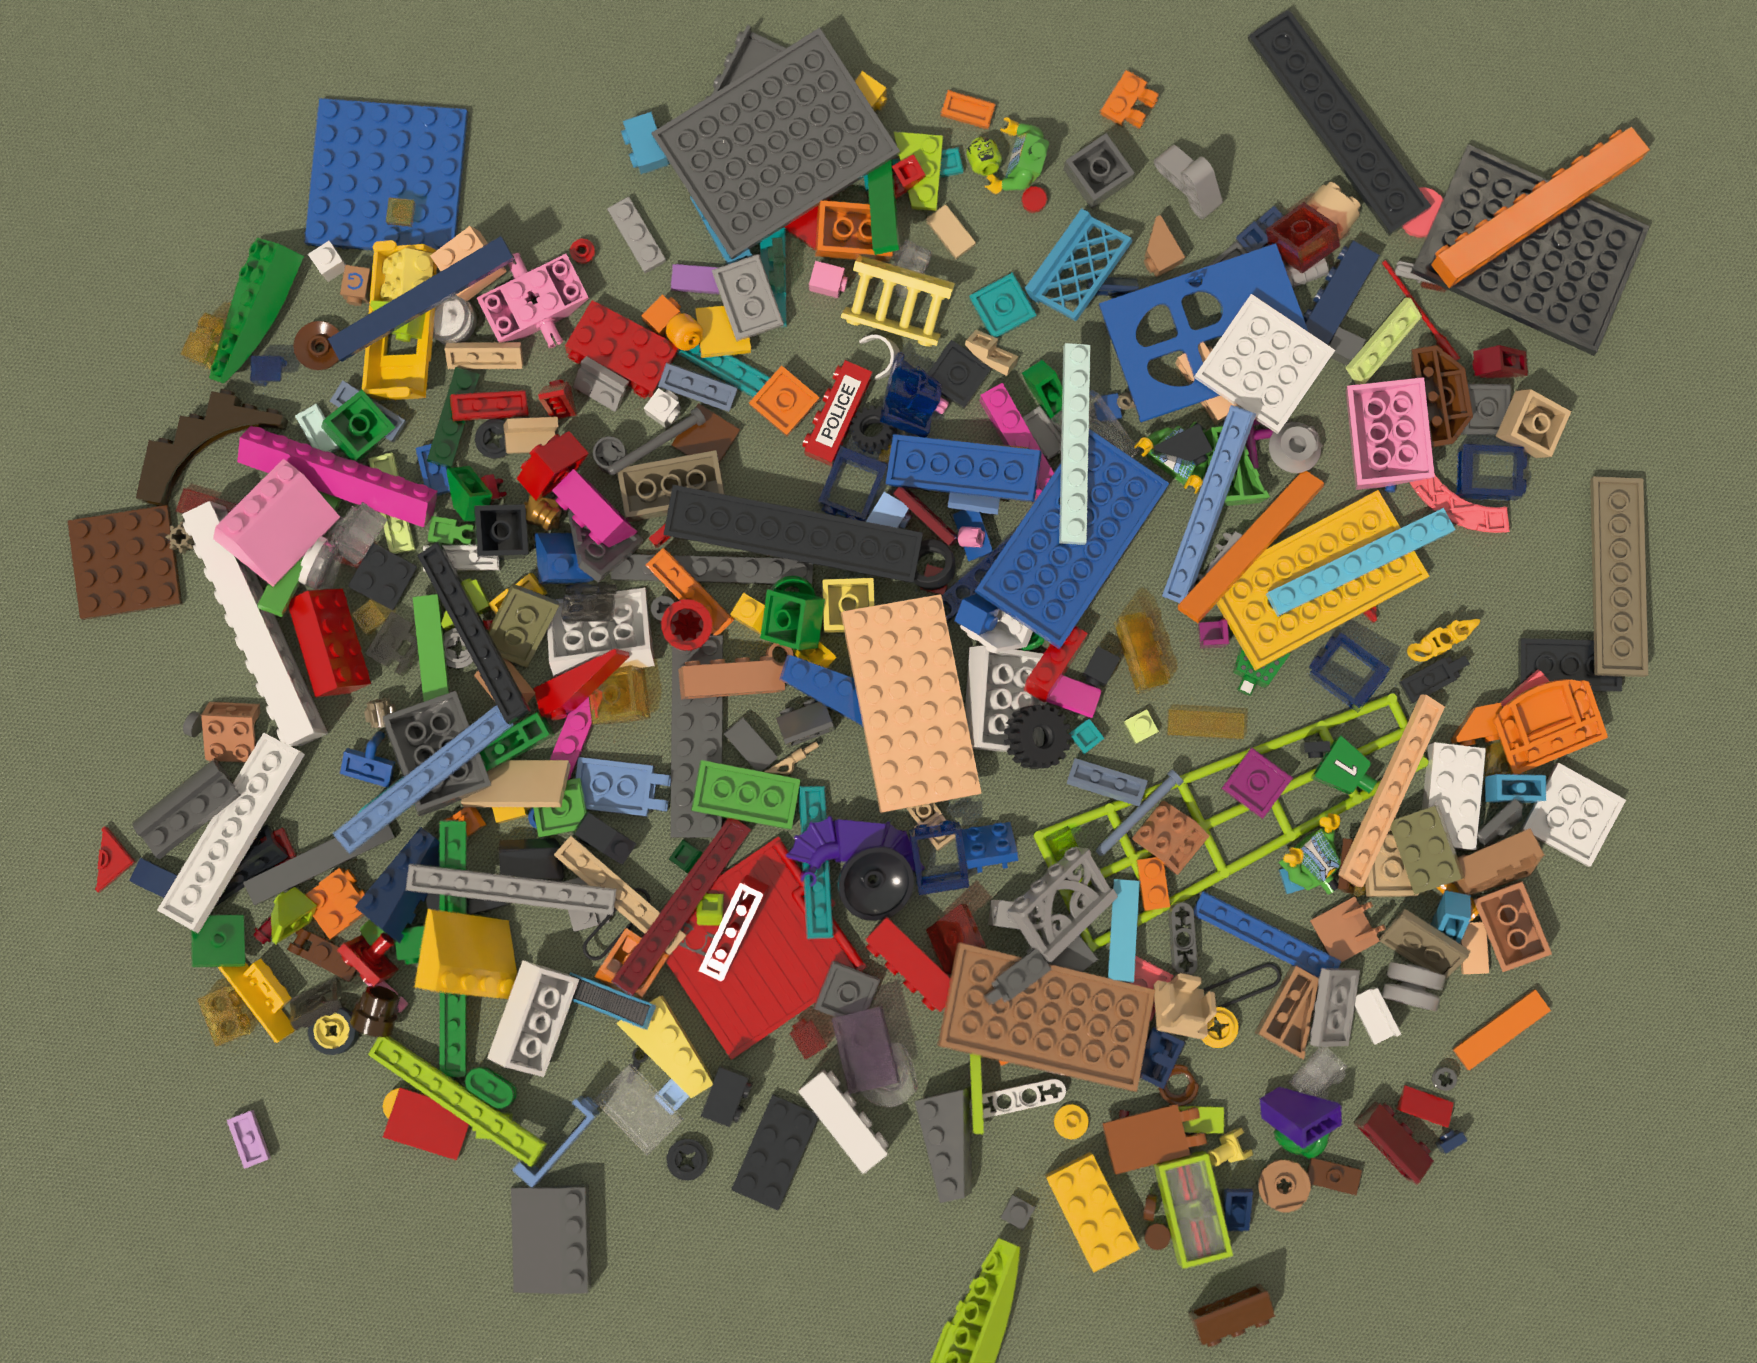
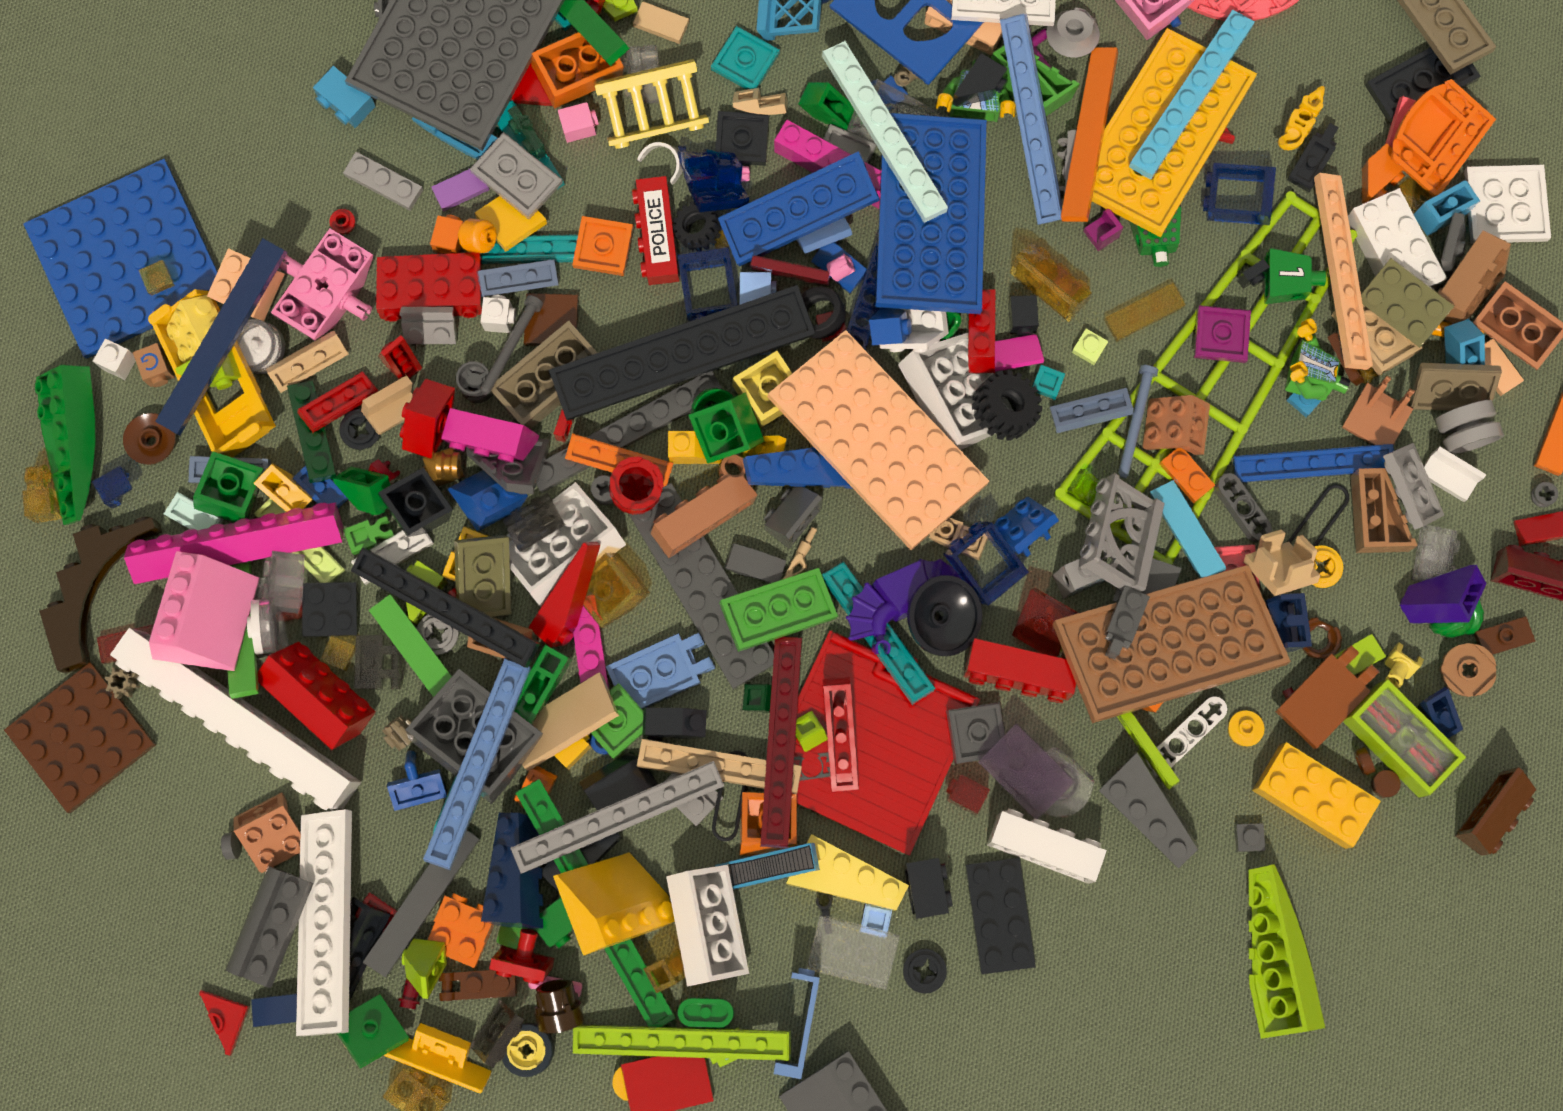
camera: 30 degrees left, 5 degrees down
(400, 454) = (282, 489): none -> yellow slope
(478, 1034) = (666, 971): none -> clear yellow brick

